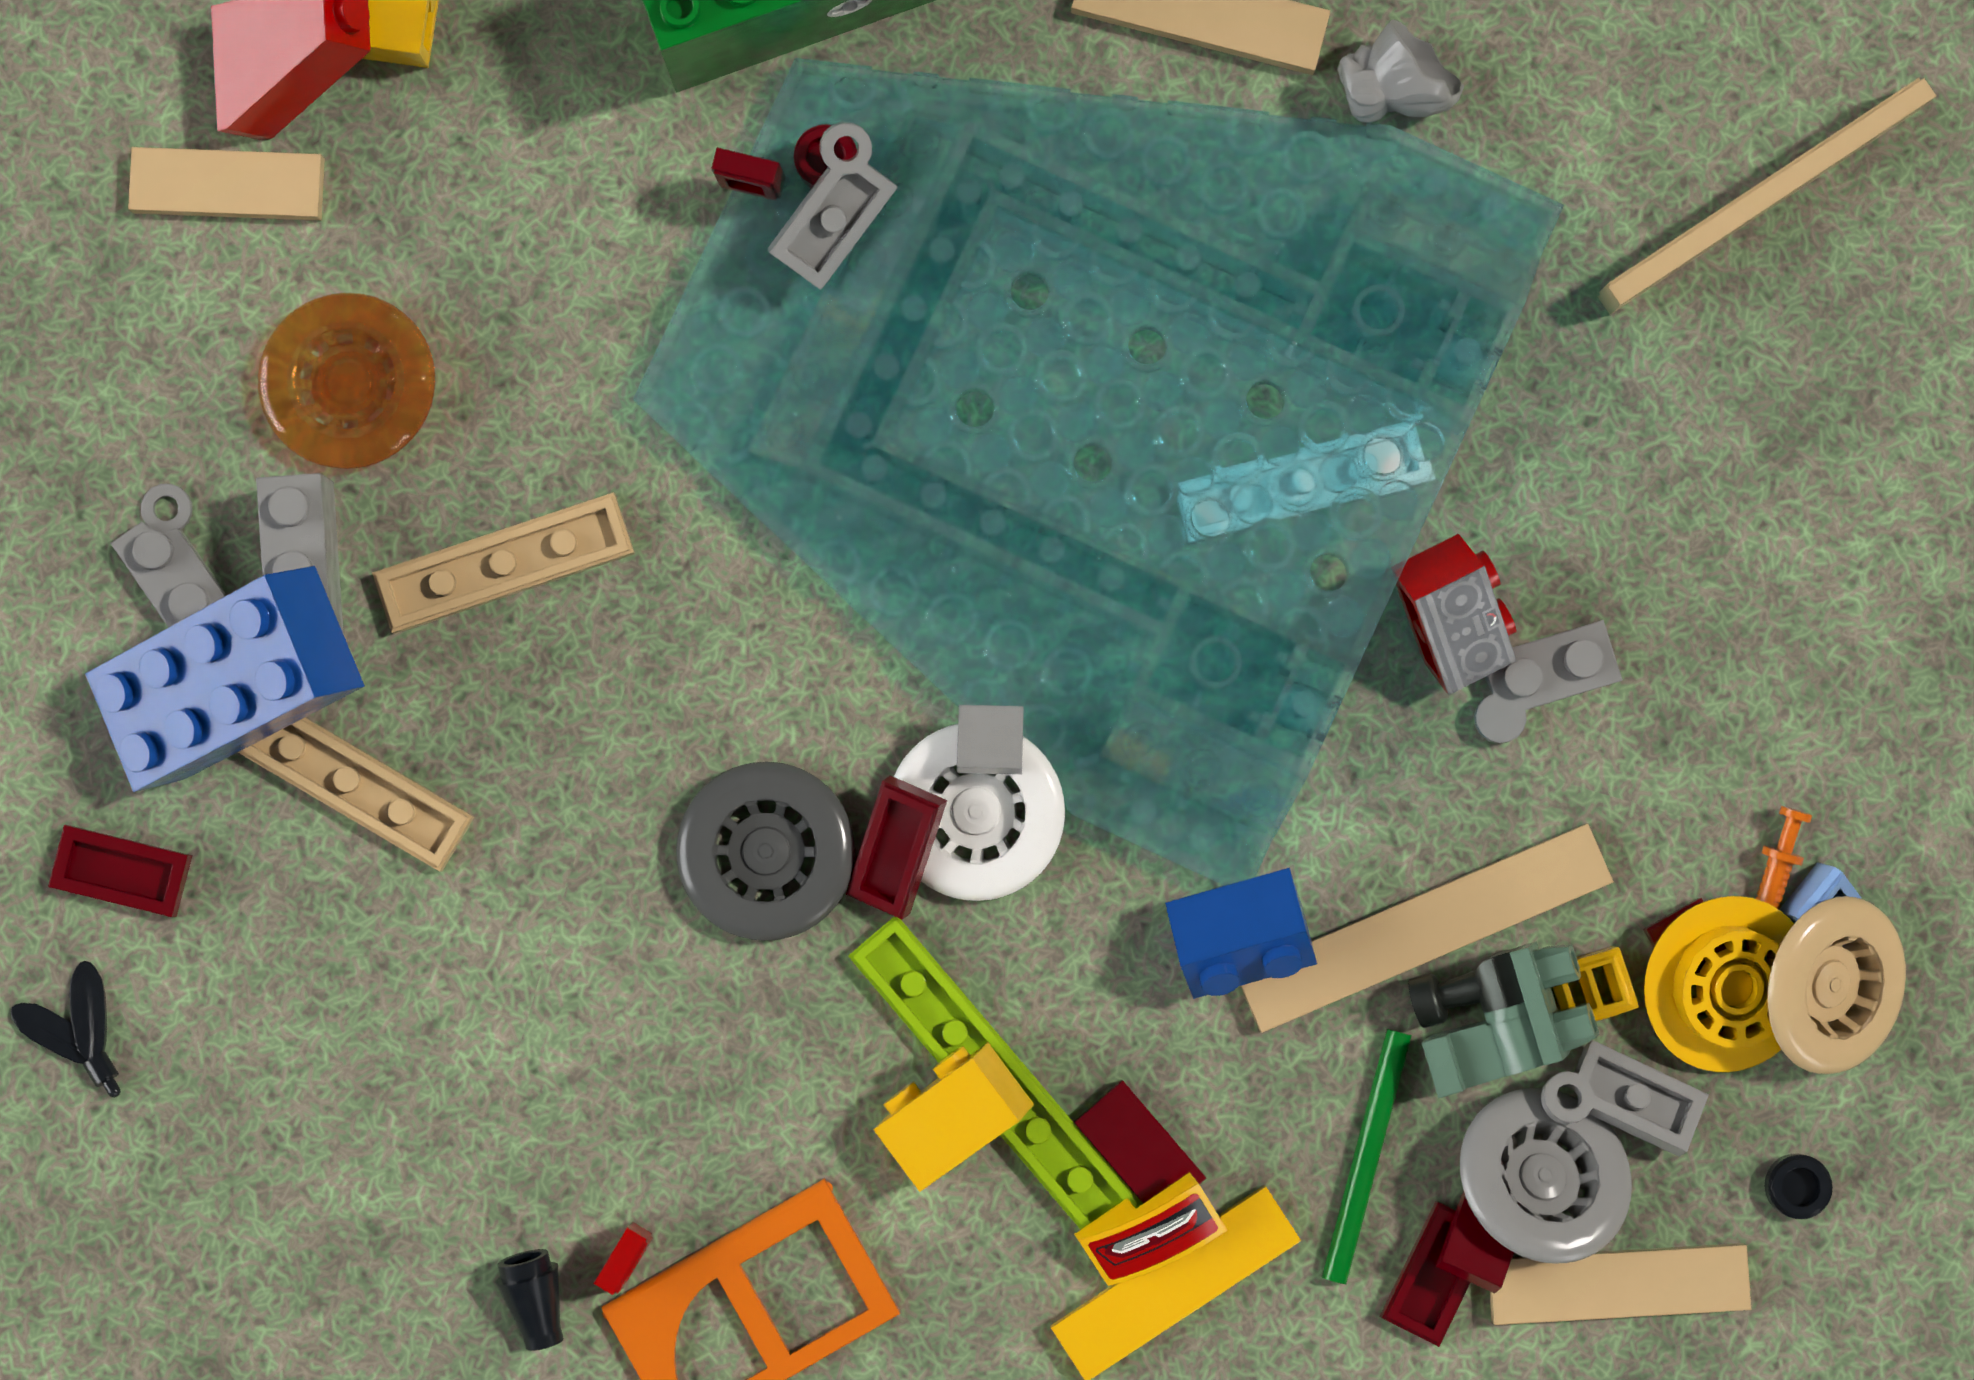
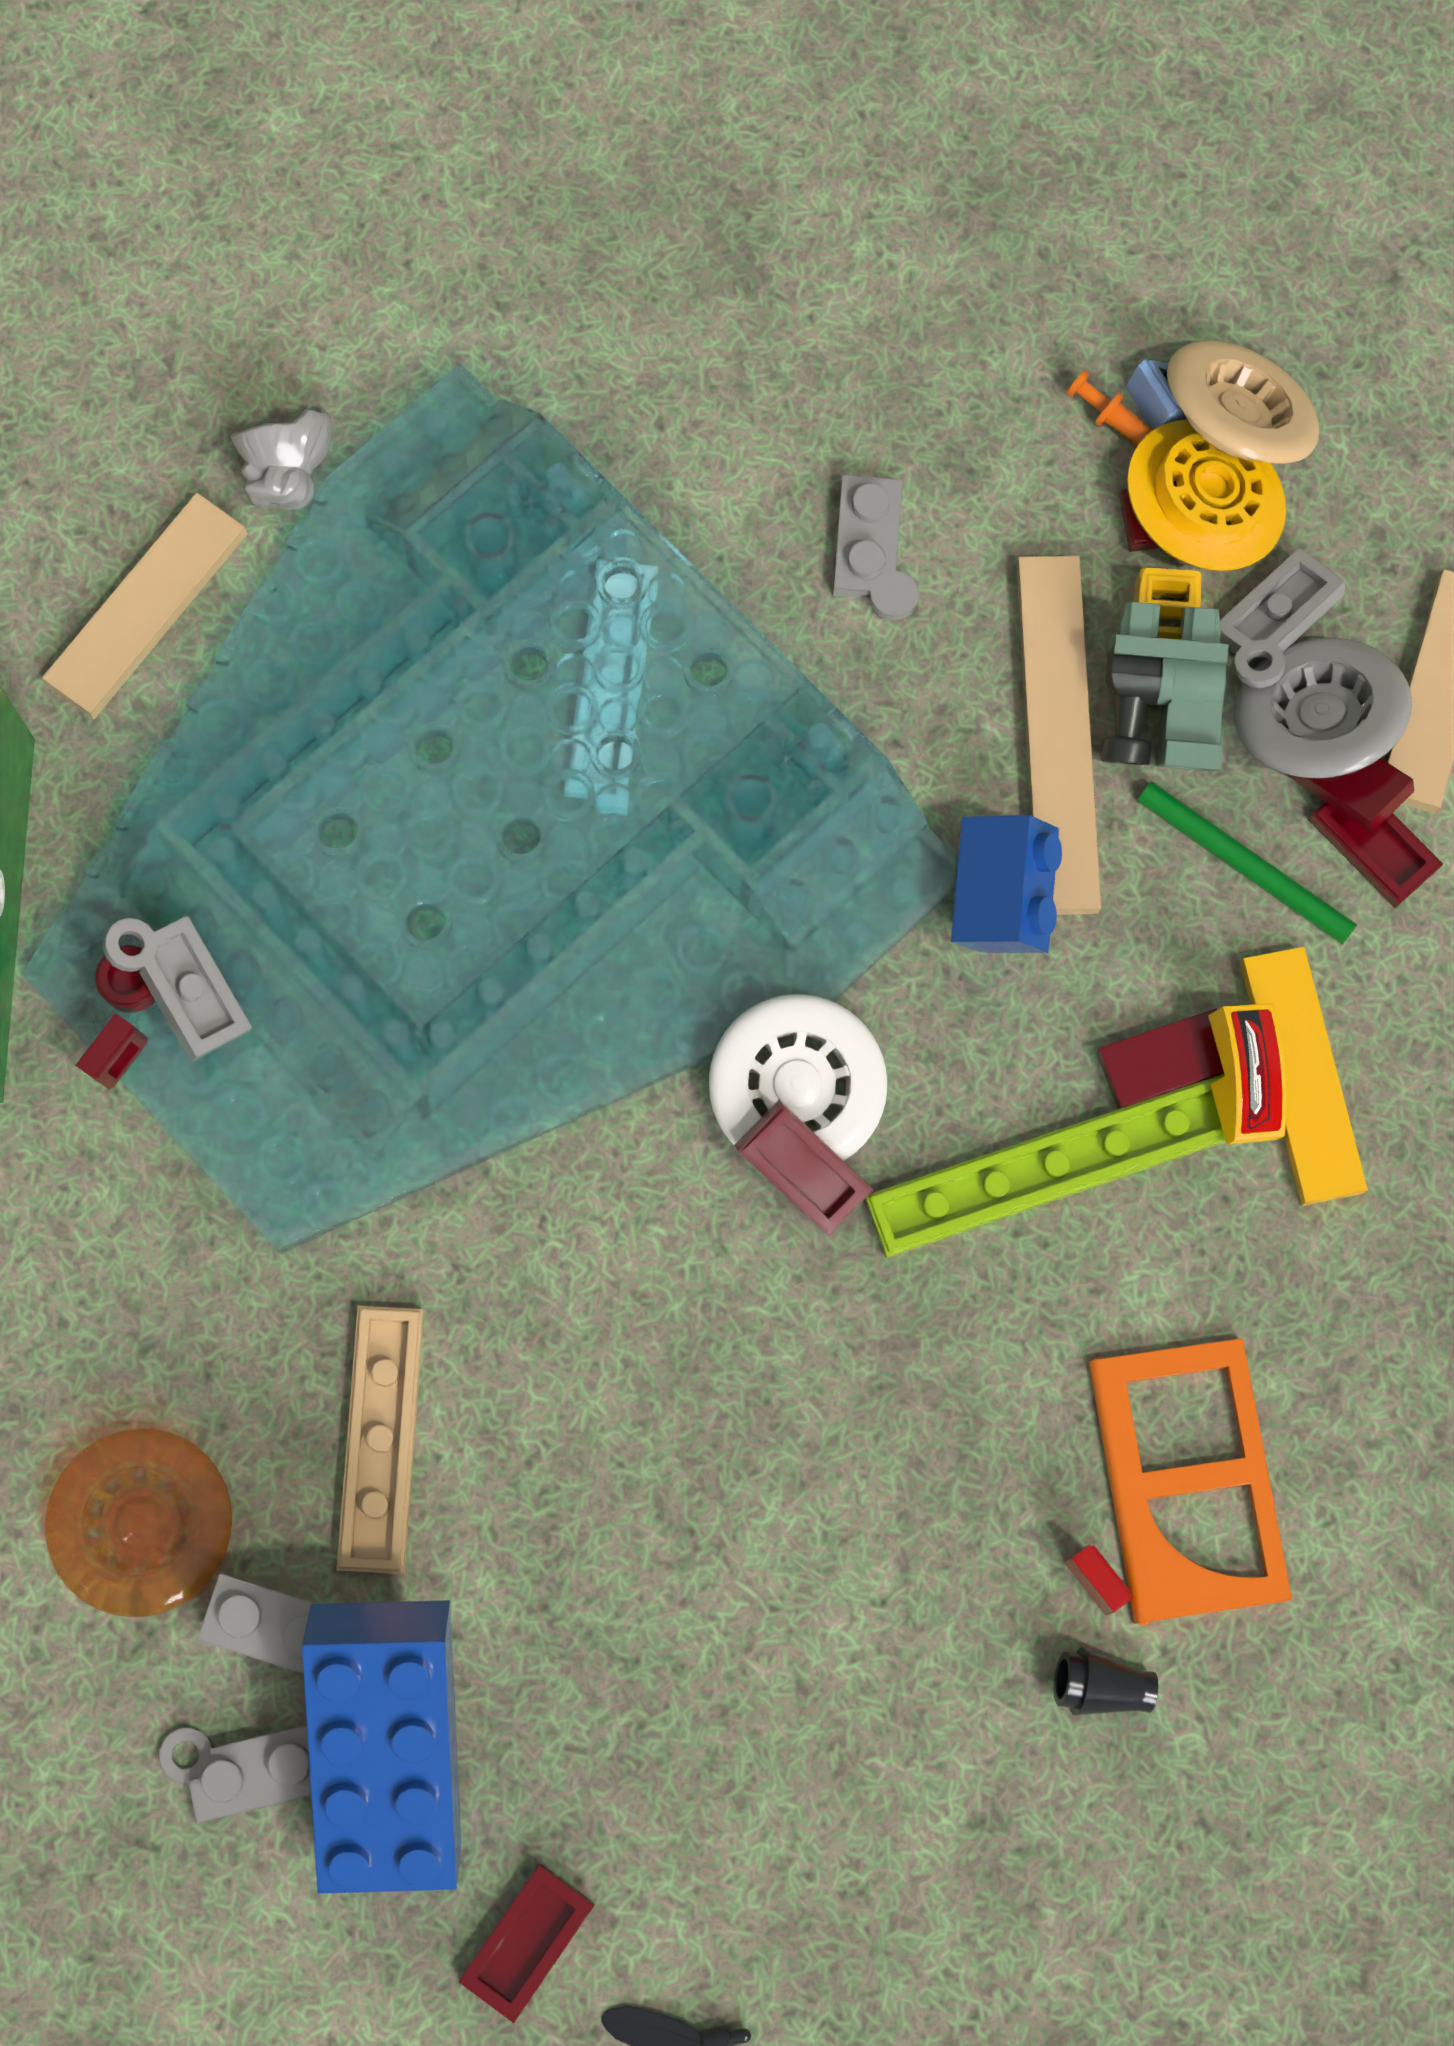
camera: 70 degrees left, 10 degrees down
(364, 790) = (545, 1662): tan tile -> none
(765, 851) = (758, 1294): dark grey wheel -> none
(953, 1115) = (1075, 1211): yellow brick -> none
(990, 739) = (738, 1036): light grey tile -> none
(1456, 613) = (790, 586): brick -> none
(1766, 195) = (525, 201): tan tile -> none
(1798, 1186) = (1405, 509): black tile -> none

